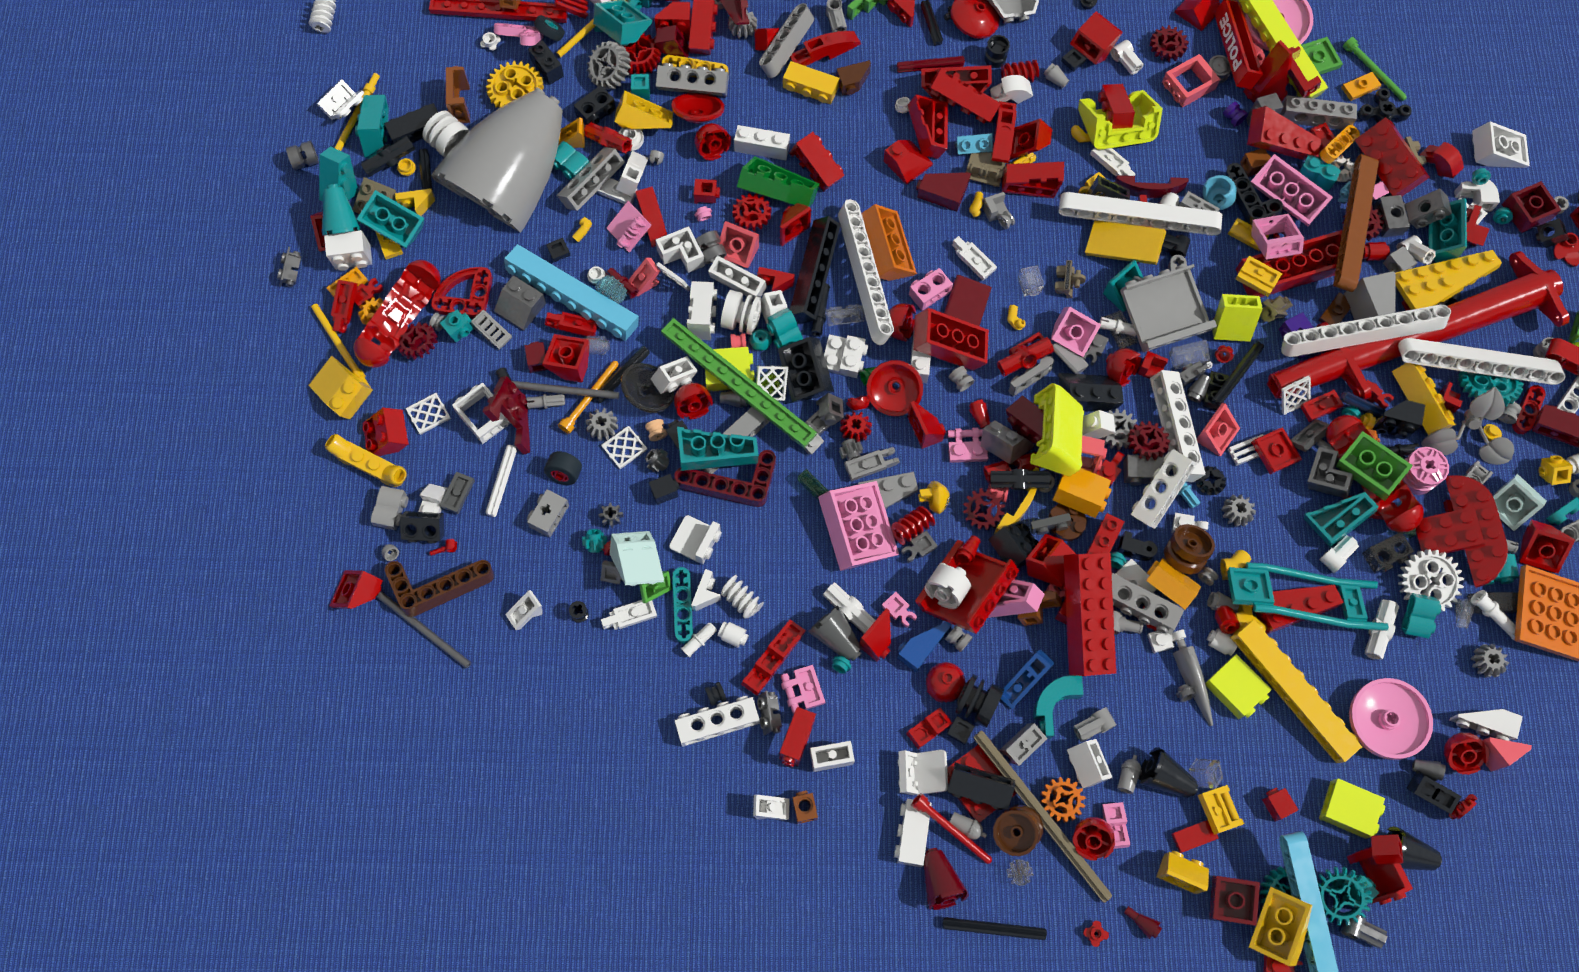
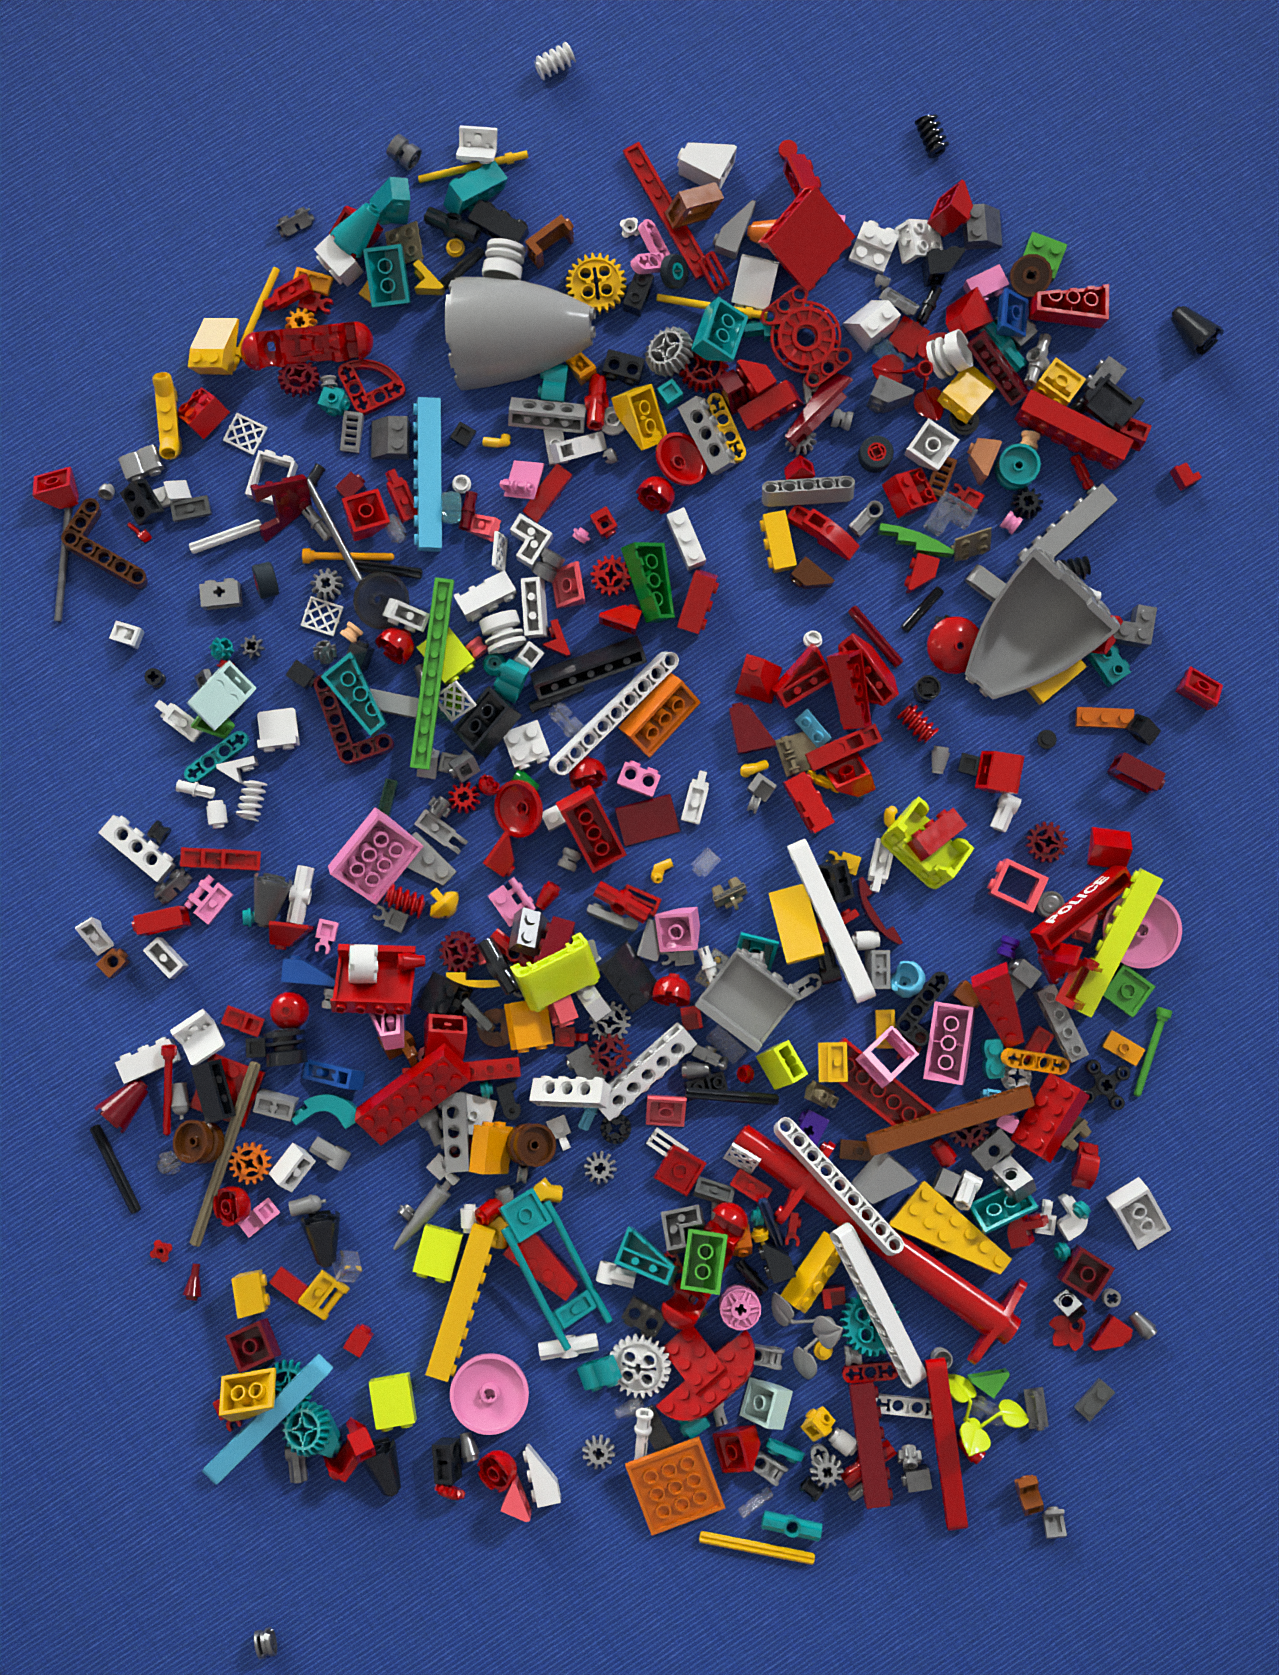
camera: 55 degrees right, 15 degrees up
(1012, 87) = (893, 727): white brick -> none

